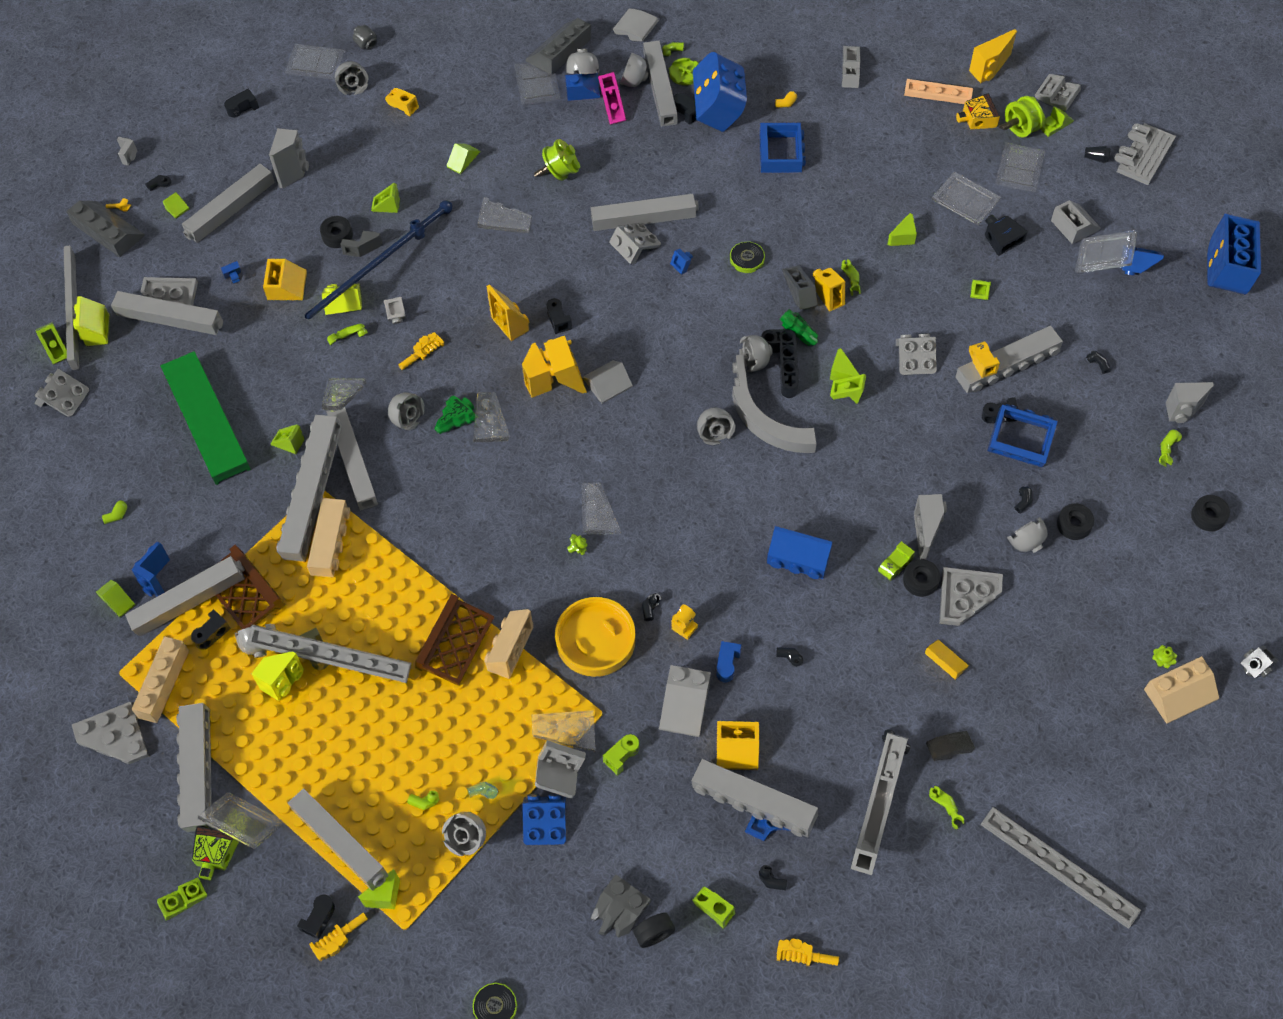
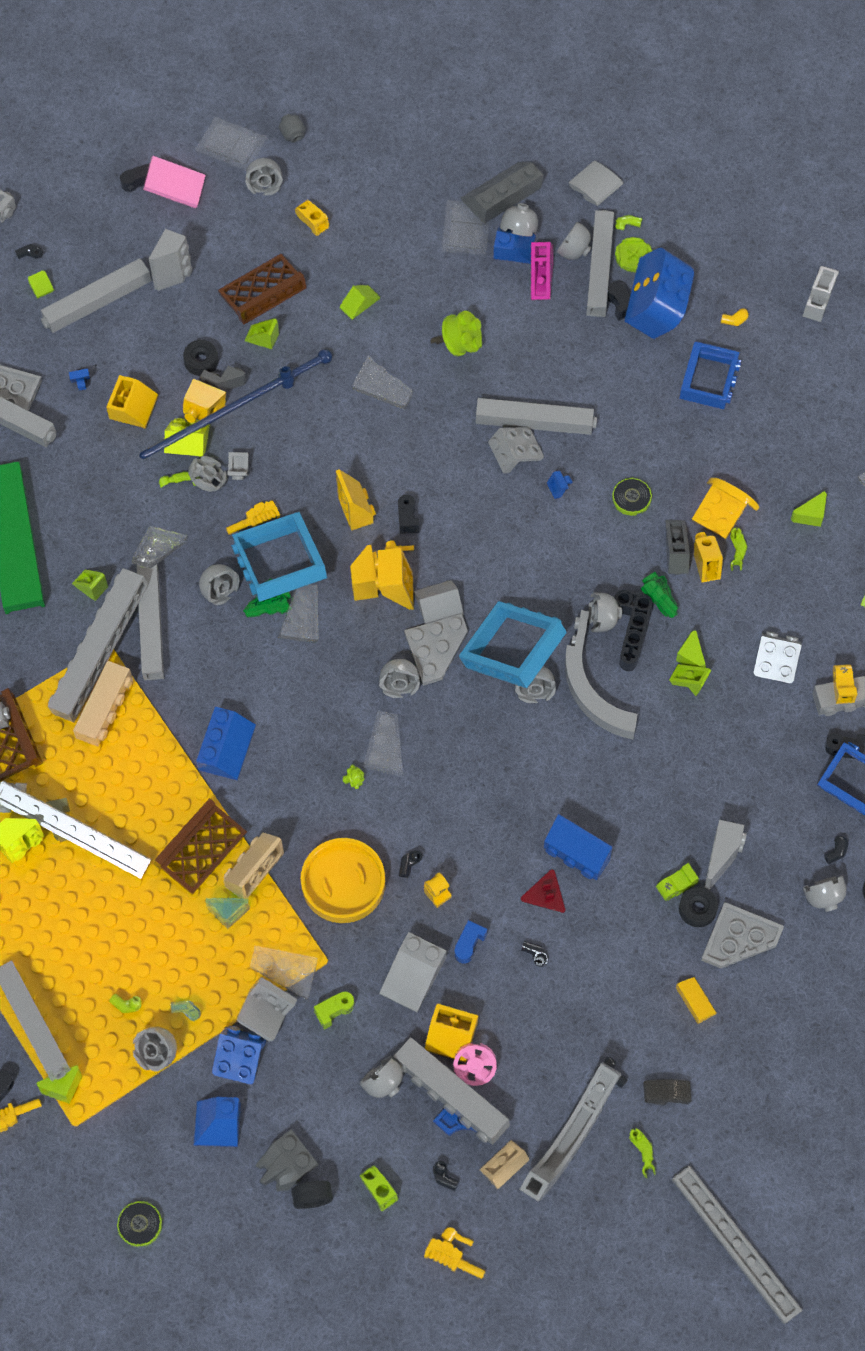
camera: 15 degrees right, 5 degrees up
(273, 99) = (174, 182): none -> bright pink tile
(347, 263) = (202, 401): none -> yellow torso
(366, 322) = (207, 473): none -> light grey piece
(381, 172) = (270, 296): none -> reddish brown fence
(445, 354) = (270, 531): none -> dark azure window
(451, 545) = (225, 744): none -> blue slope
(496, 689) = (227, 909): none -> clear light blue slope
(542, 887) = (217, 1122): none -> blue slope
(593, 447) = (399, 677): none -> light grey cylinder
(616, 417) = (436, 646): none -> light grey plate
(686, 419) = (535, 660): none -> dark azure window
(688, 804) = (383, 1079): none -> light grey cylinder
(769, 766) = (475, 1064): none -> bright pink piece
(781, 602) = (545, 893): none -> dark red piece
(795, 930) = (449, 1234): none -> yellow hand
(824, 852) = (504, 1164): none -> tan slope
(828, 245) = (722, 507): none -> yellow piece

